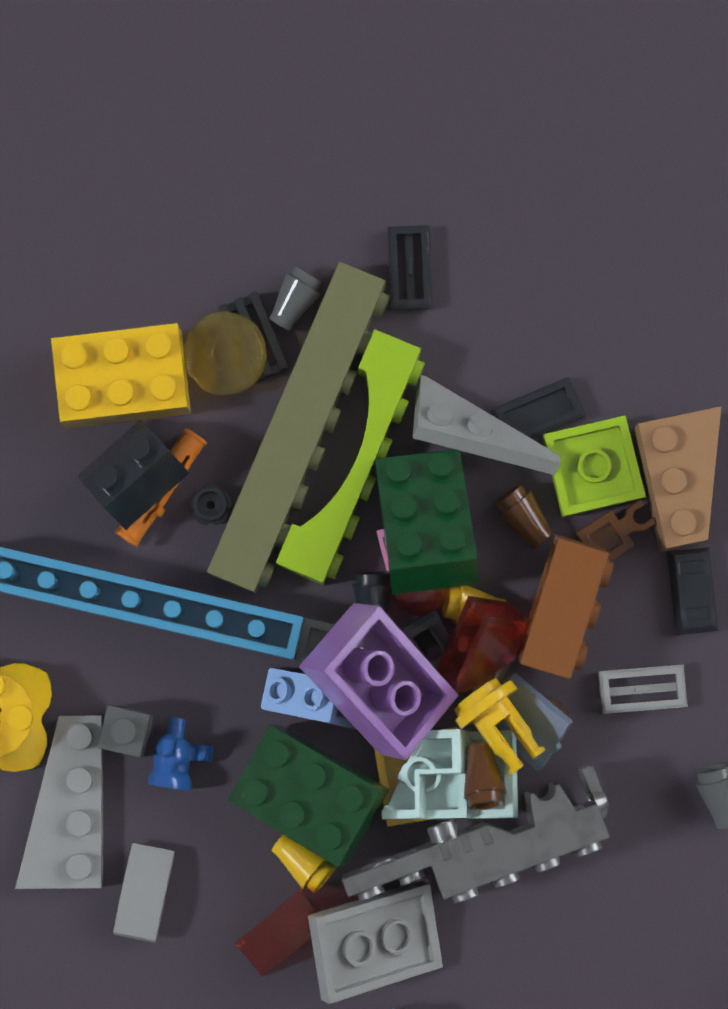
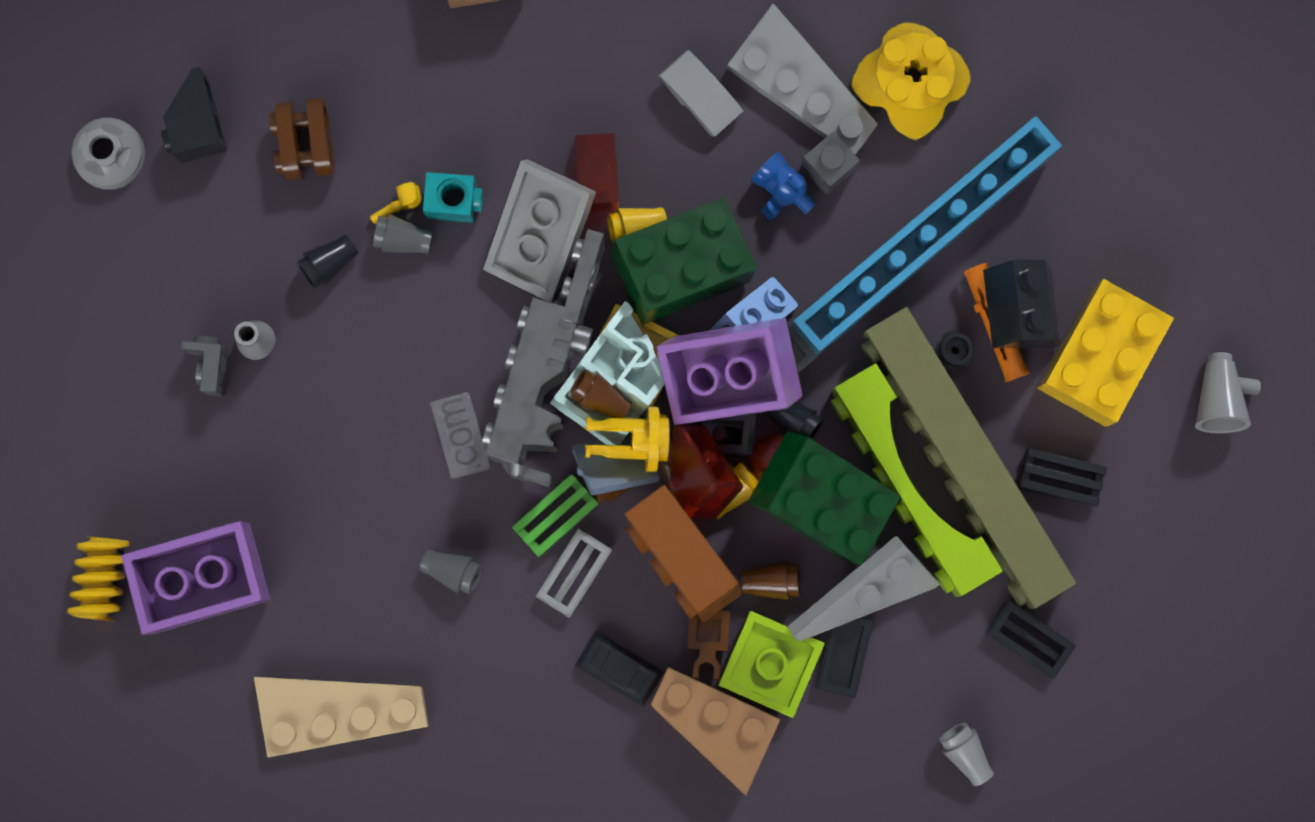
camera: 125 degrees right, 0 degrees up
(86, 253) = (1221, 397): none -> light grey piece
(225, 353) = (1066, 445): clear yellow tile -> none
(295, 297) = (1071, 532): dark grey cone -> none
(544, 255) = (965, 751): none -> light grey cone
(600, 877) = (460, 435): none -> clear tile
(642, 748) = (580, 493): none -> bright green tile

